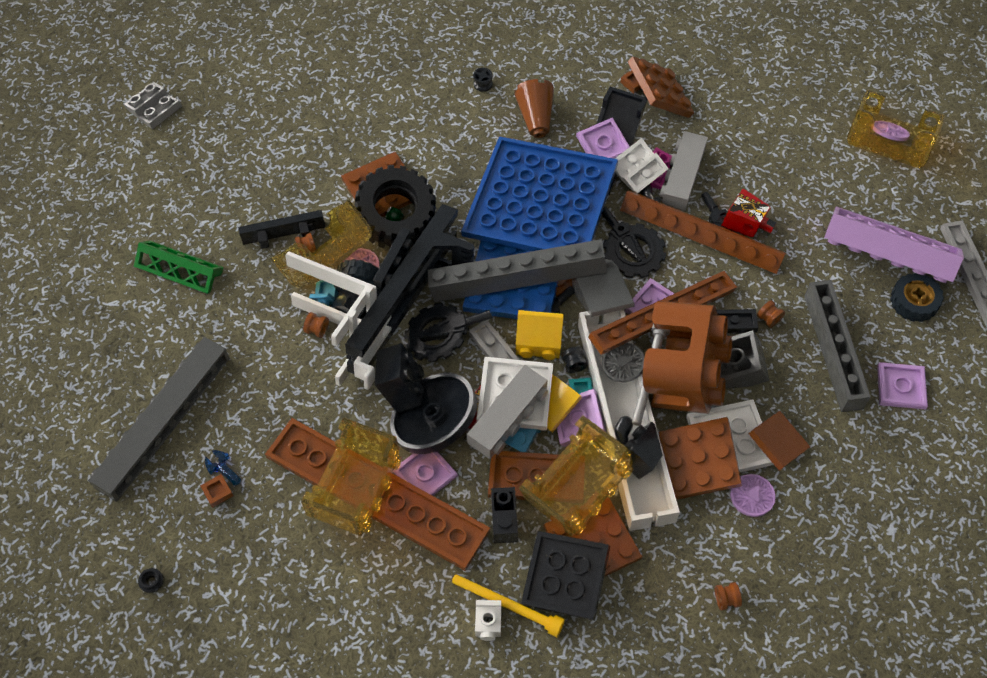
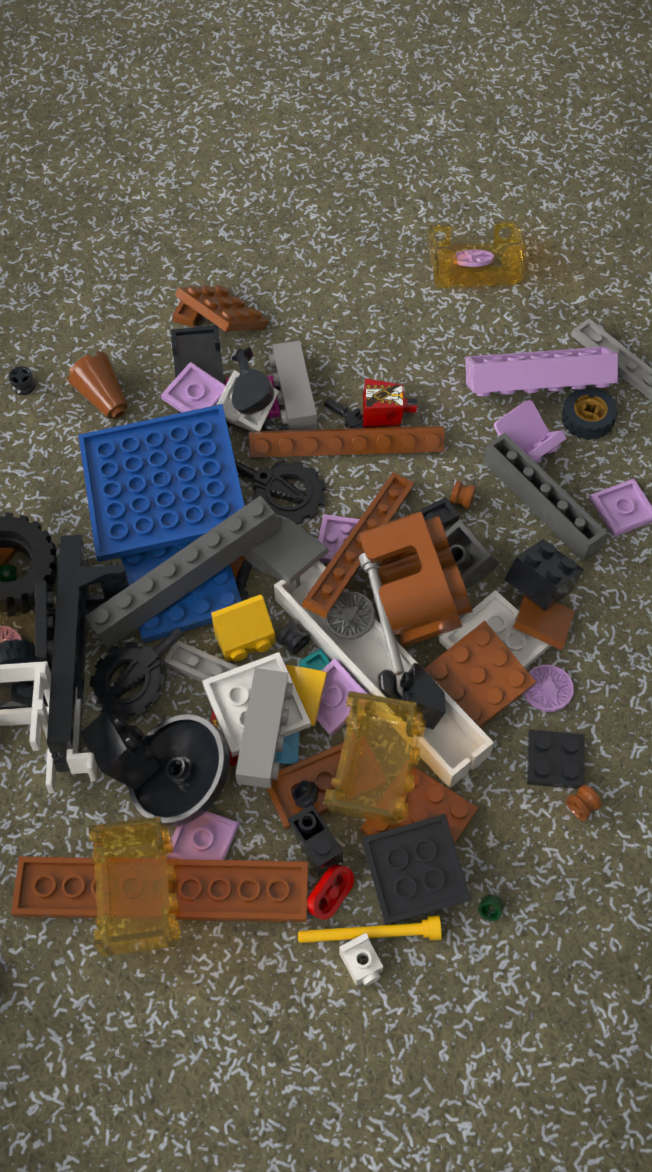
camera: 30 degrees left, 0 degrees up
(494, 559) = (330, 893): none -> red plate
(514, 477) = (305, 794): none -> black plate
(605, 630) = (483, 908): none -> dark green hinge
(646, 158) = (252, 389): none -> black piece
(726, 552) = (556, 759): none -> black plate
(799, 405) = (543, 574): none -> black brick
(854, 288) = (529, 431): none -> lavender bracket

